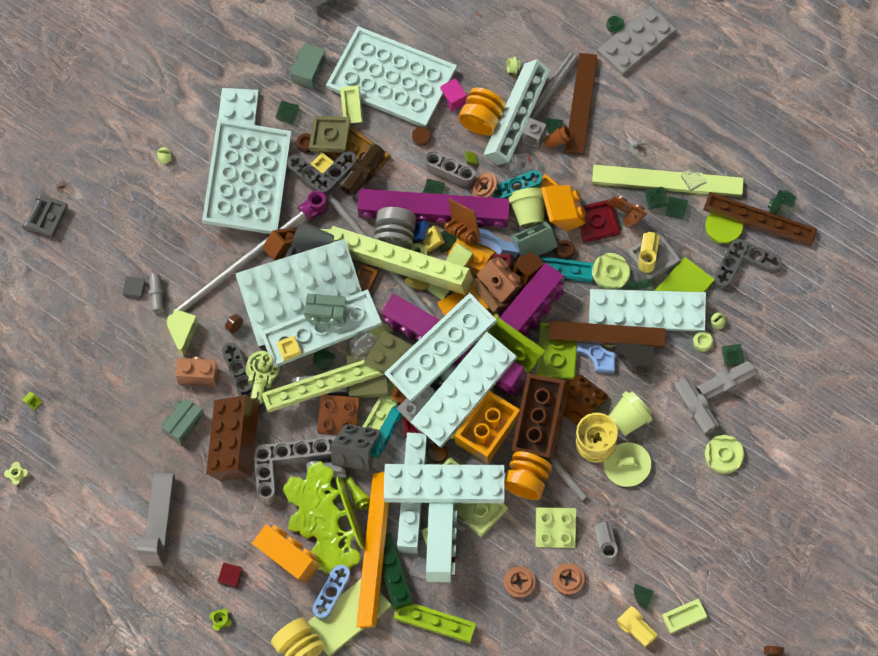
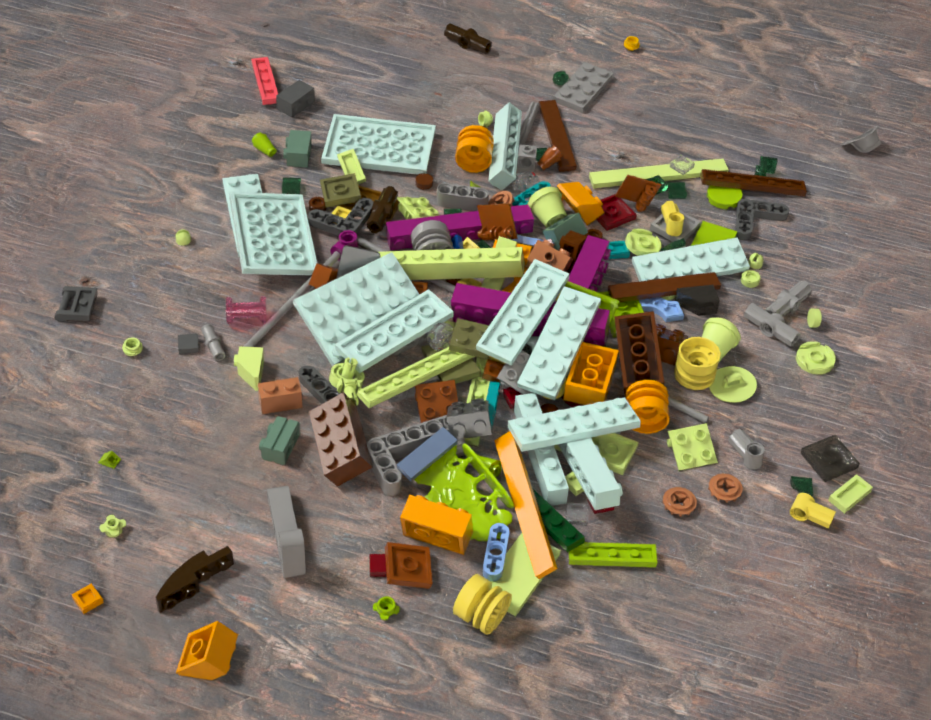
camera: 25 degrees left, 20 degrees down
(59, 547) = (185, 580): none -> dark brown slope
(59, 622) = (207, 652): none -> light orange slope
(80, 275) = (132, 346): none -> yellowish green plate
(196, 264) = (246, 310): none -> clear pink piece
(234, 323) = (302, 350): reddish brown tile -> none
(251, 584) = (408, 565): none -> dark orange plate
(275, 51) = (262, 143): none -> lime cone
(289, 348) = (370, 349): light yellow tile -> none
(302, 477) = (427, 454): none -> sand blue tile
(323, 359) = (402, 361): clear green tile -> none
(325, 309) = (396, 308): sand green brick -> none
(402, 174) = (416, 207): none -> yellowish green hinge
(454, 94) = (445, 145): dark pink panel -> none
(681, 574) = (830, 458): none -> clear smoke plate
(732, 355) = (782, 281): clear green plate -> none
(743, 408) = (814, 318): none -> yellowish green tile

